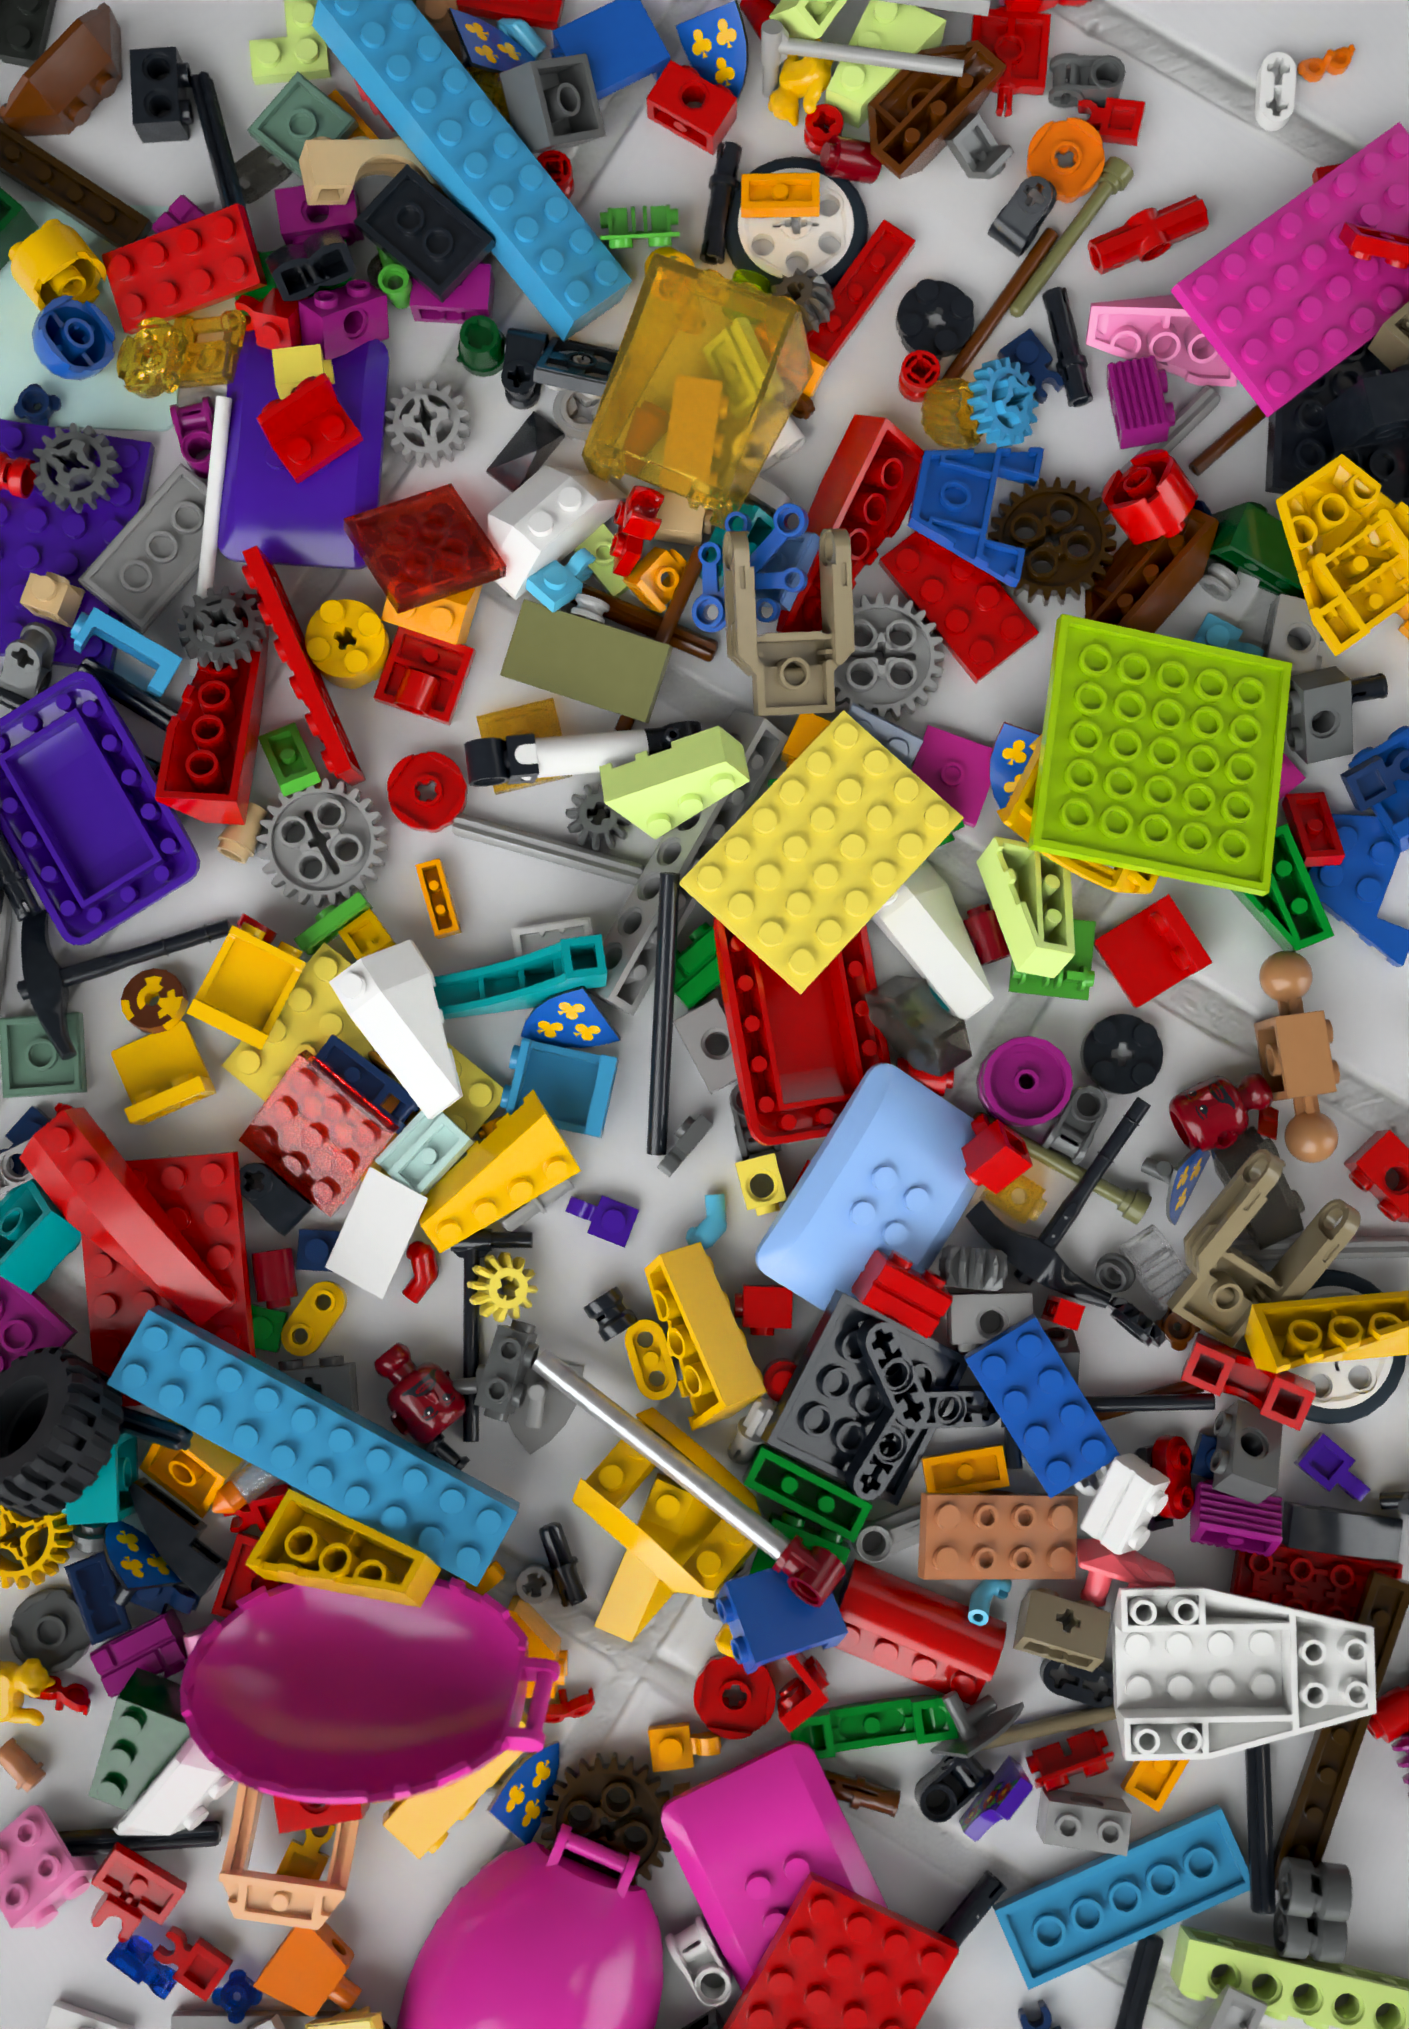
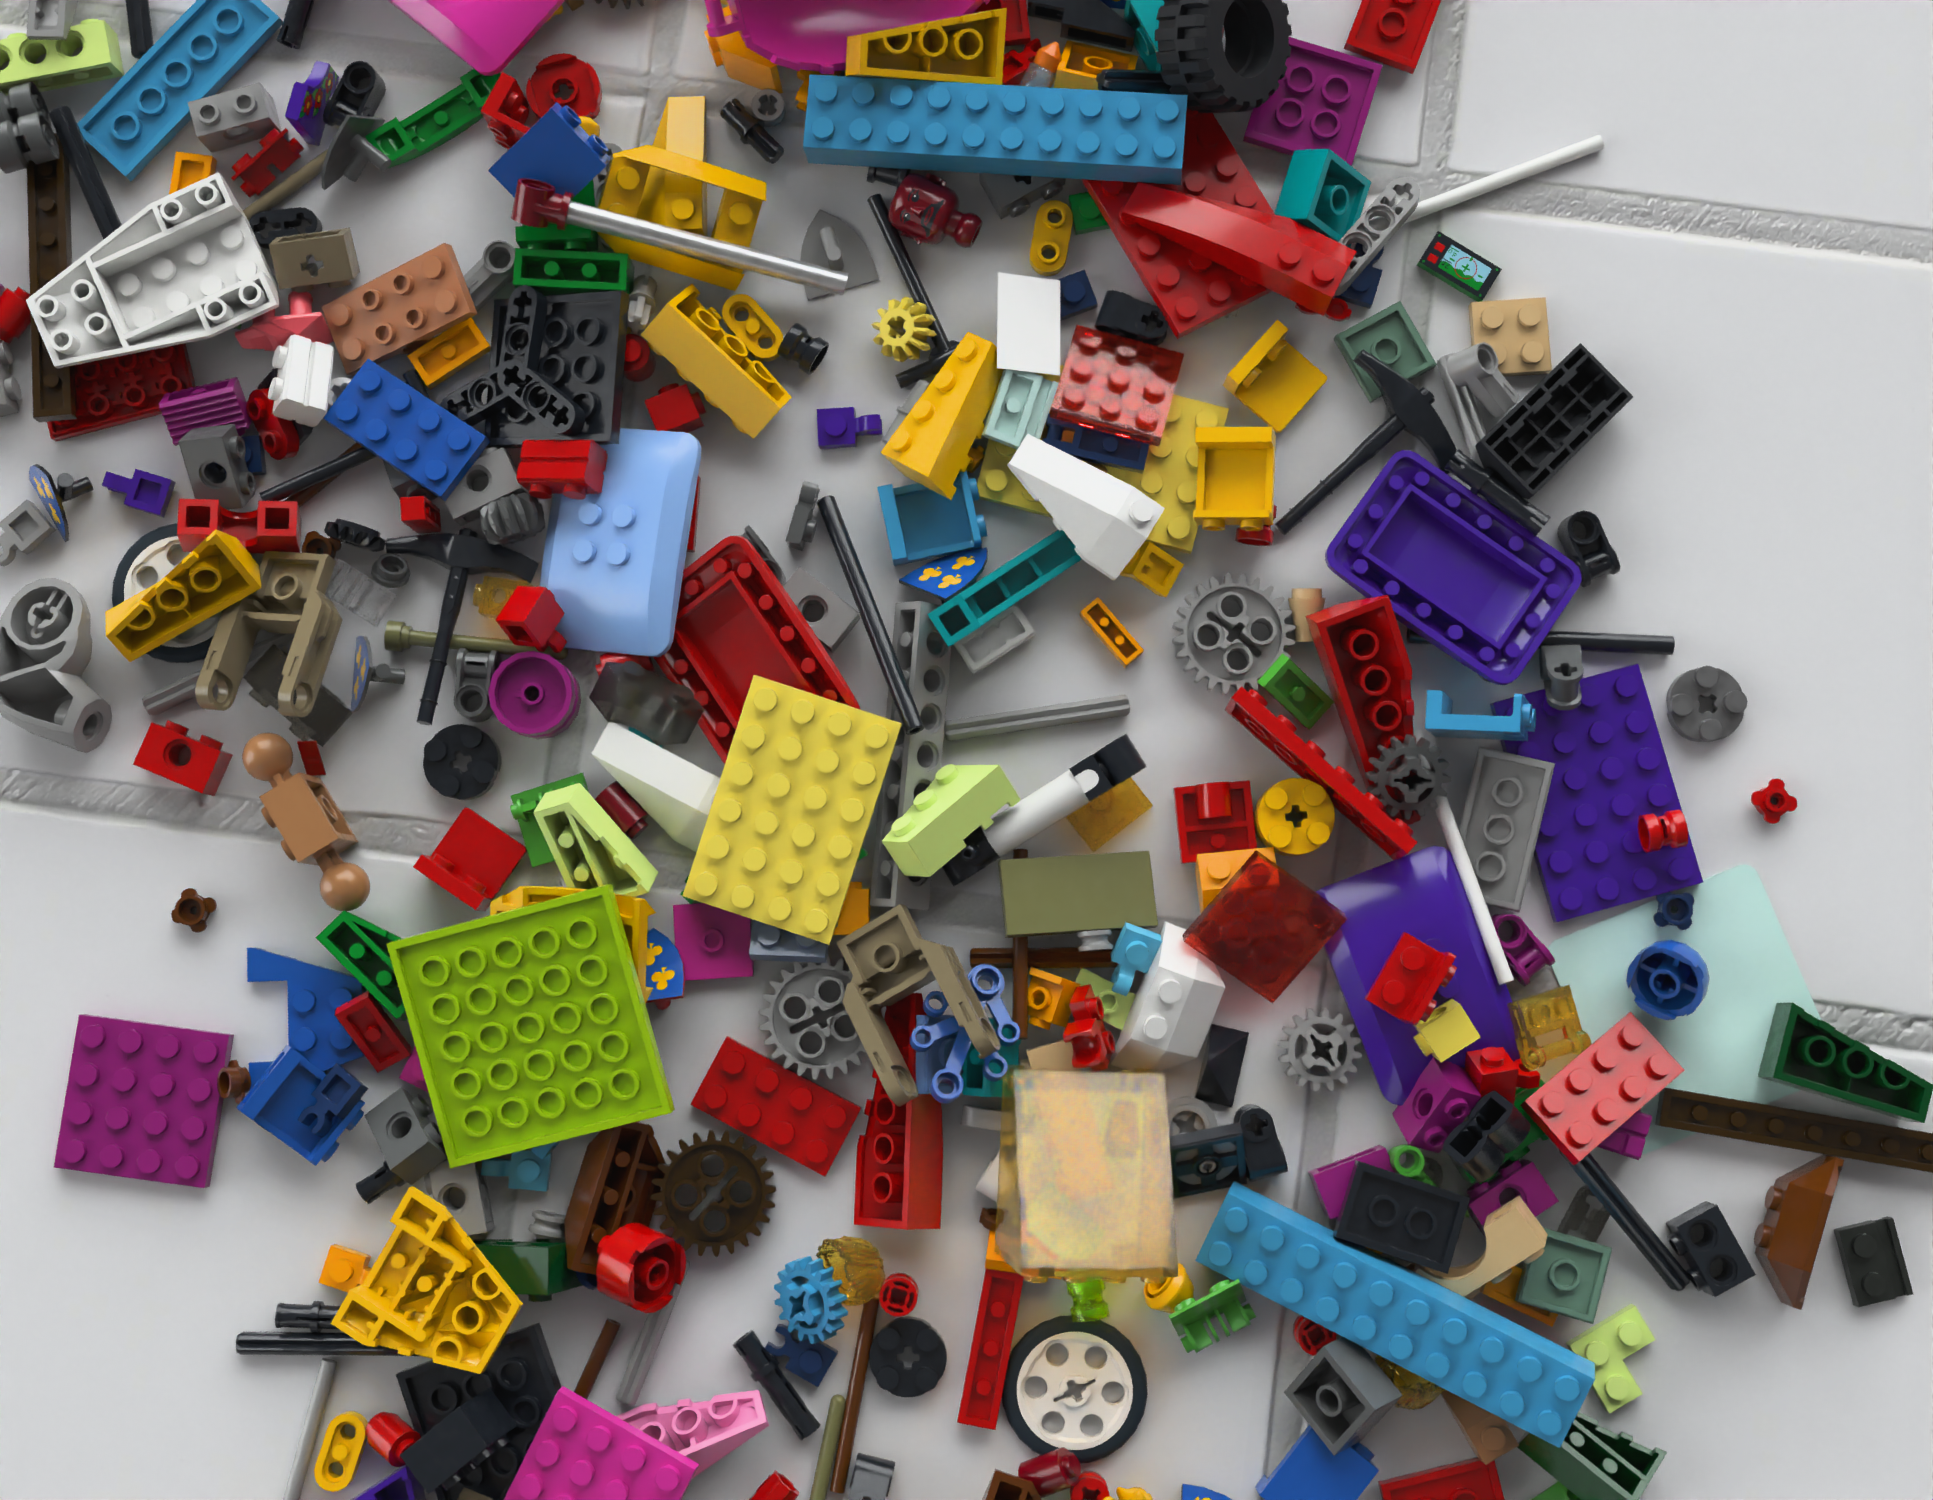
camera: 160 degrees right, 0 degrees up
(52, 598) = (1568, 737): tan brick -> none
(55, 265) = (1716, 1038): yellow brick -> none
(79, 484) = (1607, 877): dark grey gear -> none
(129, 694) = (1464, 688): black axle -> none
(146, 986) = (1327, 431): piece -> none
(166, 348) = (1574, 990): clear yellow plate -> none
(274, 1277) = (1098, 254): dark red brick -> none
(330, 922) = (1192, 571): bright green plate -> none
(424, 769) = (1177, 738): red plate -> none
(424, 1269) = (976, 317): red arm -> none
(481, 346) = (1304, 1143): dark green piece -> none
(486, 45) = (1428, 1426): blue shield -> none
(501, 1379) = (869, 254): dark grey brick -> none
(523, 34) = (1411, 1462): medium azure arm -> none
(574, 1708) = (691, 24): red piece -> none
(583, 823) = (1011, 751): dark grey gear -> none
(674, 1746) = (594, 32): light orange plate -> none
(697, 968) = (860, 669): green brick -> none
(701, 125) = (1200, 1446): red brick -> none
(713, 1225) = (750, 459): medium azure arm -> none
(723, 187) = (1155, 1393): black pin -> none
(761, 1165) = (736, 522): light yellow brick -> none
(780, 195) = (1098, 1407): light orange plate -> none
(811, 294) = (1034, 1311): dark grey gear -> none
(863, 1794) = (405, 65): reddish brown pin -> none
(917, 1633) = (433, 207): red brick -> none
(956, 501) = (813, 1187): blue wing -> none
(982, 1596) = (392, 253): medium azure arm -> none
(1139, 402) = (688, 1357): magenta brick -> none
(1217, 1111) = (358, 743): dark red piece -> none
(1341, 1531) = (114, 441): black slope -> none

